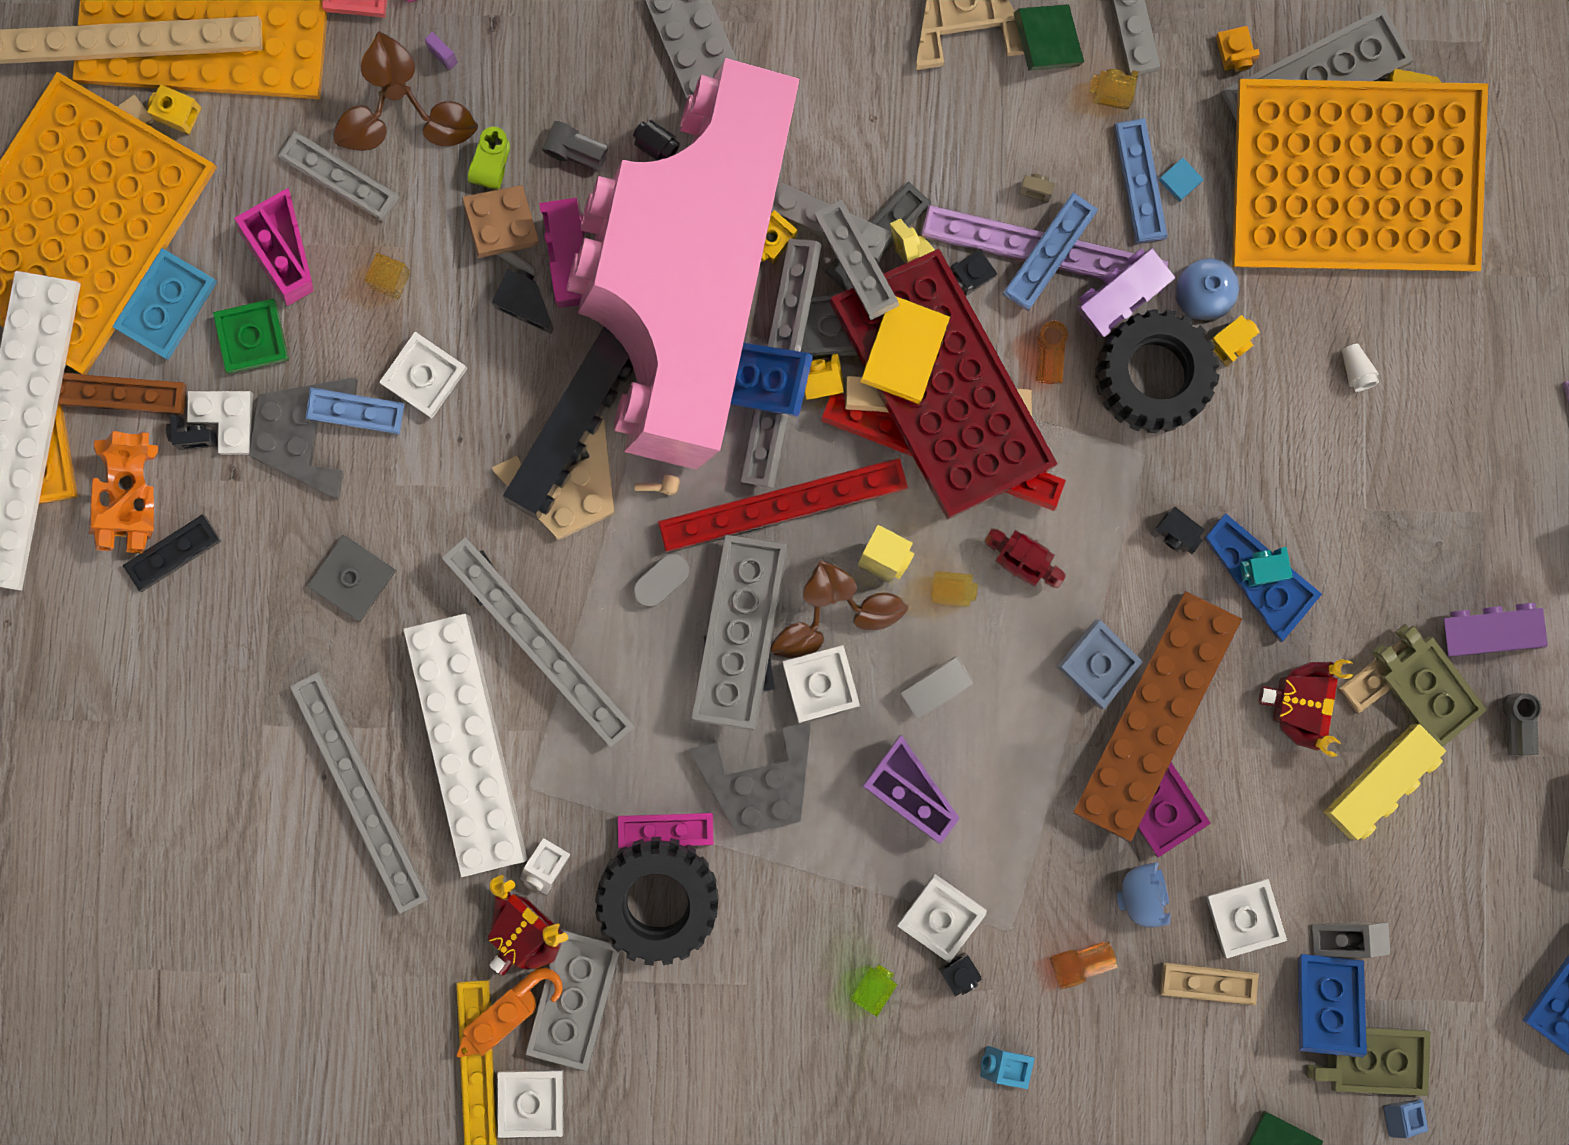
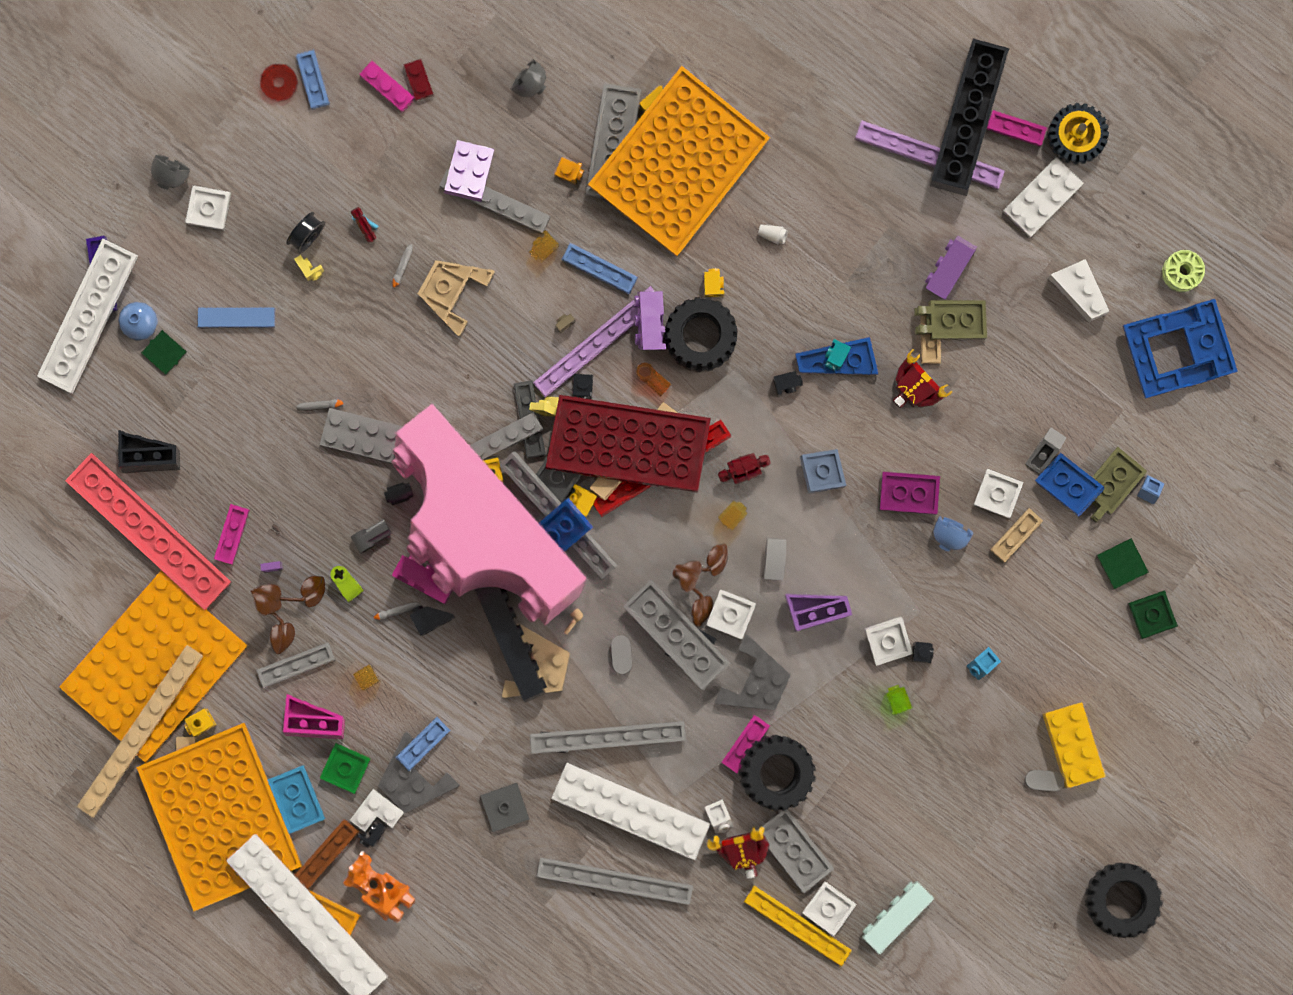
camera: 45 degrees left, 0 degrees up
(172, 553) = (425, 887): black tile -> none
(423, 375) = (430, 696): white plate -> none
(500, 221) = (381, 601): medium nougat plate -> none
(506, 1014) = (777, 887): orange plate -> none
(783, 505) = (628, 567): red tile -> none
(856, 259) = (536, 440): light grey plate -> none
(886, 555) = (693, 535): light yellow brick -> none
(905, 350) = (599, 450): yellow tile -> none
(1048, 37) = (493, 259): dark green tile -> none
(1050, 251) = (602, 340): medium blue tile -> none
(1075, 966) = (960, 593): clear orange piece -> none
(1157, 716) = (869, 462): dark orange plate -> none
(1181, 179) = (614, 248): dark azure tile -> none
(1207, 289) = (678, 277): medium blue cylinder -> none
(1385, 782) = (983, 377): light yellow brick -> none
(1524, 728) = (1007, 290): dark grey piece -> none

